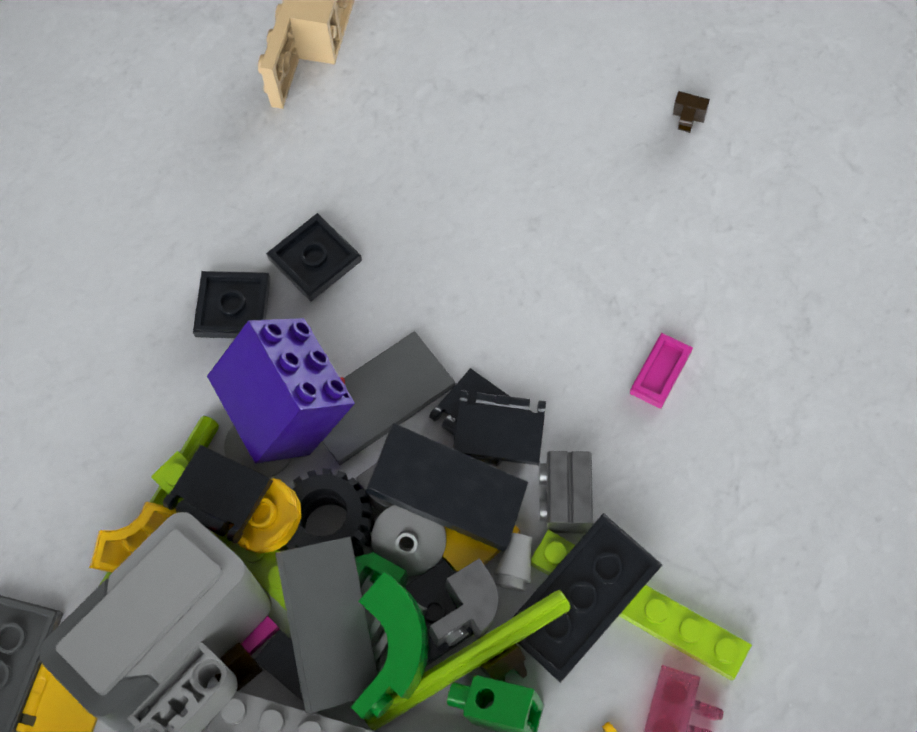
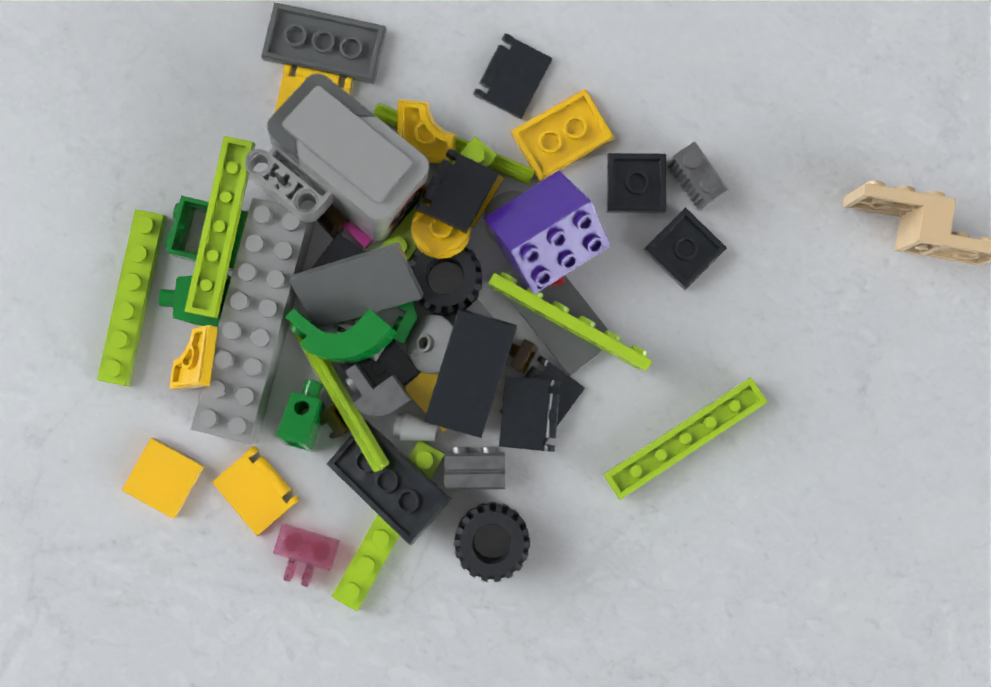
camera: 85 degrees right, 20 degrees up
(82, 440) = (513, 76): none -> black piece
(163, 386) = (562, 135): none -> yellow tile
(233, 239) = (697, 176): none -> flat silver brick
(382, 387) = (580, 327): none -> lime plate
(429, 429) = (522, 355): none -> dark brown tile
(533, 265) = (684, 438): none -> lime plate
(661, 370) = (587, 549): dark pink tile -> none
(664, 445) = (486, 567): none -> black tyre
(690, 109) = (851, 584): dark brown tile -> none

